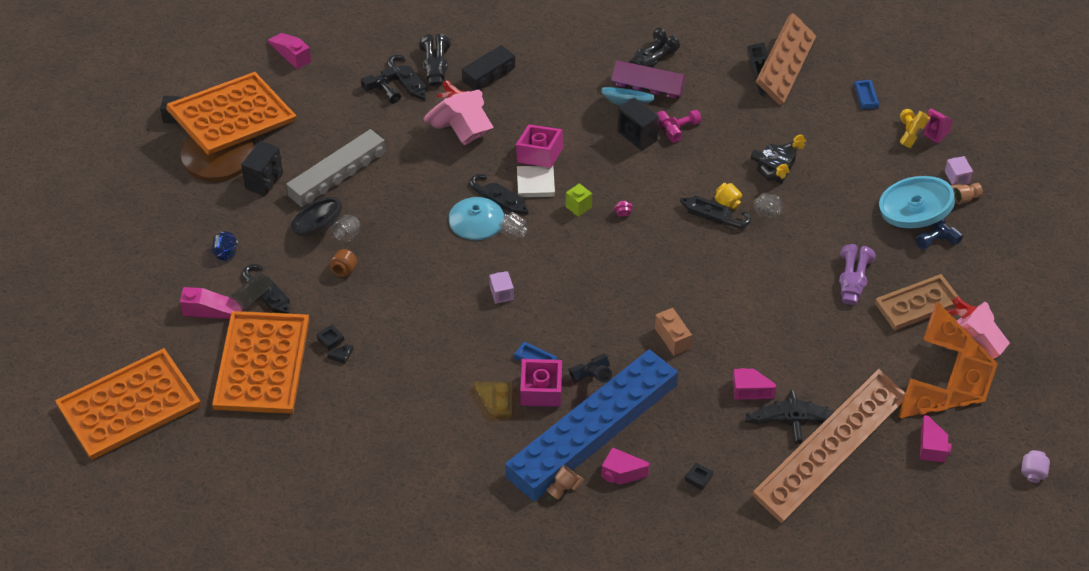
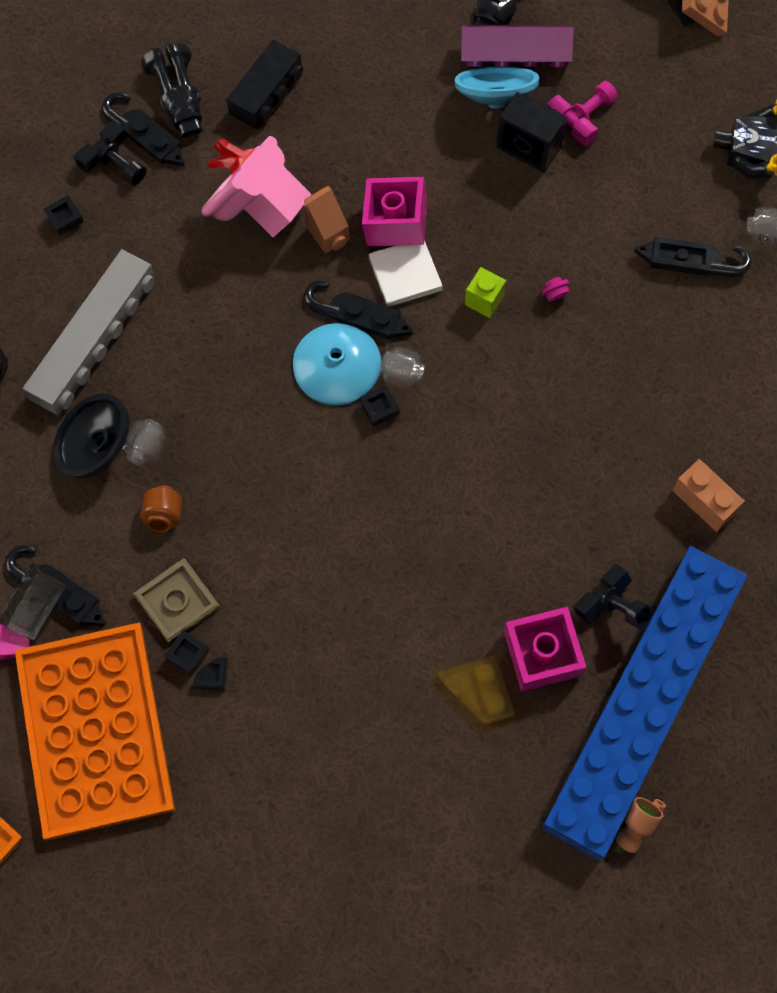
camera: 15 degrees left, 20 degrees up
(335, 311) = (176, 600): none -> dark tan tile
(343, 107) = (63, 215): none -> black plate
(492, 243) = (379, 405): none -> black plate
(496, 141) = (326, 220): none -> nougat slope
(501, 287) = (421, 484): lavender brick -> none
(528, 351) = (513, 596): blue tile -> none
(623, 468) = (714, 766): dark pink slope -> none
(728, 195) = (705, 225): yellow head -> none

